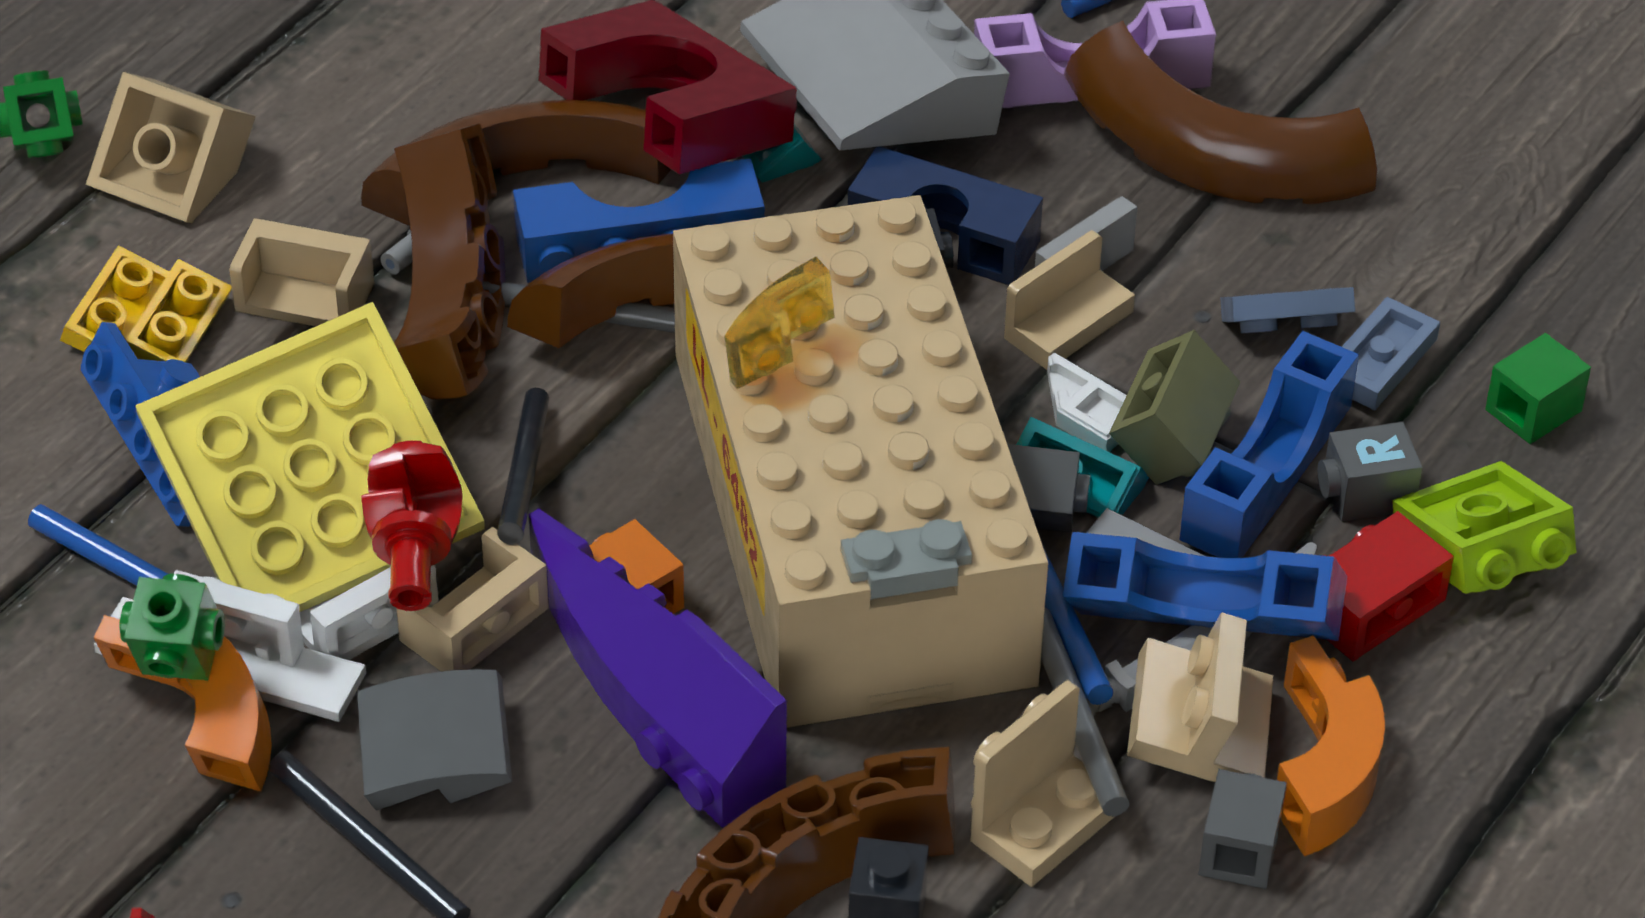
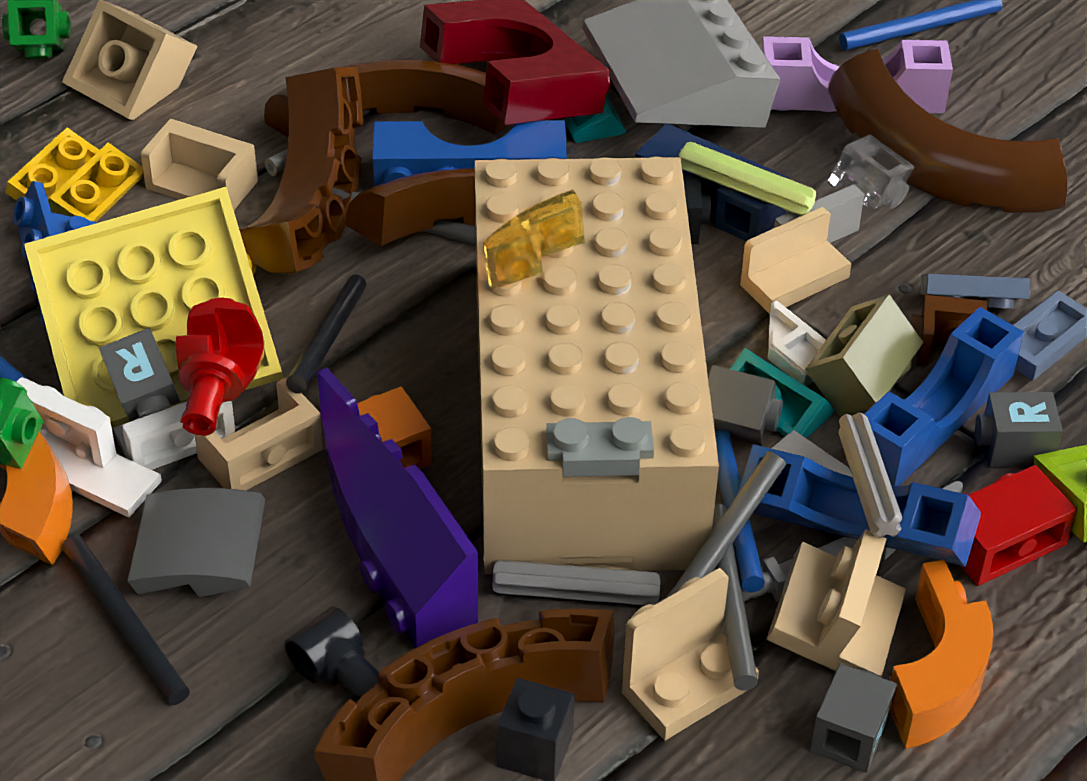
camera: 10 degrees right, 0 degrees up
(318, 548) = (139, 374): none -> dark grey brick
(629, 839) = (332, 650): none -> black pin
(891, 723) = (576, 582): none -> light grey axle
(994, 206) = (747, 178): none -> yellowish green axle
(1063, 627) = (733, 519): none -> dark grey bar
(1141, 174) = (874, 170): none -> clear brick
(1214, 549) = (869, 475): none -> light grey axle
(1256, 352) = (939, 319): none -> reddish brown bracket

